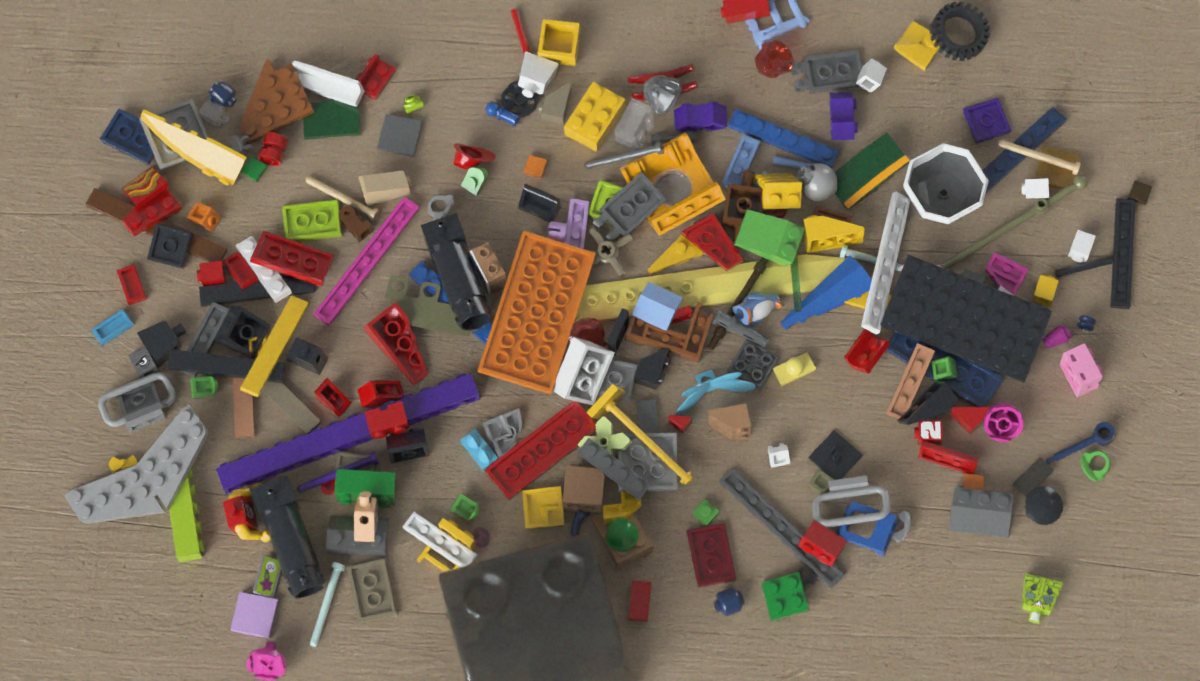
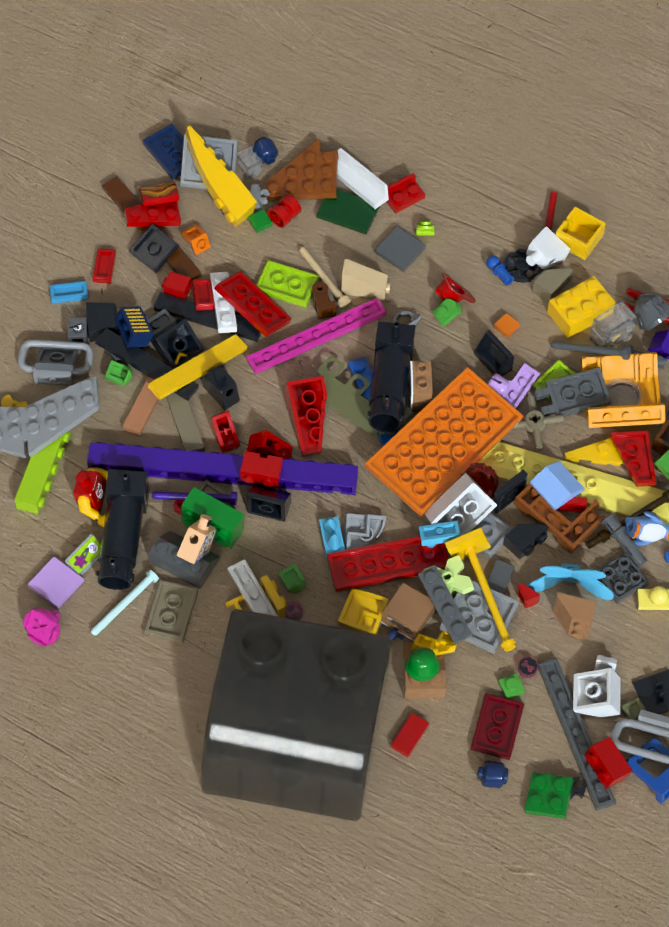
camera: 20 degrees right, 10 degrees down
(196, 336) = (134, 326): none -> dark blue brick
(576, 404) = (438, 533): none -> medium azure tile
(711, 488) = (527, 667): none -> tile
(783, 483) = (597, 693): none -> white slope

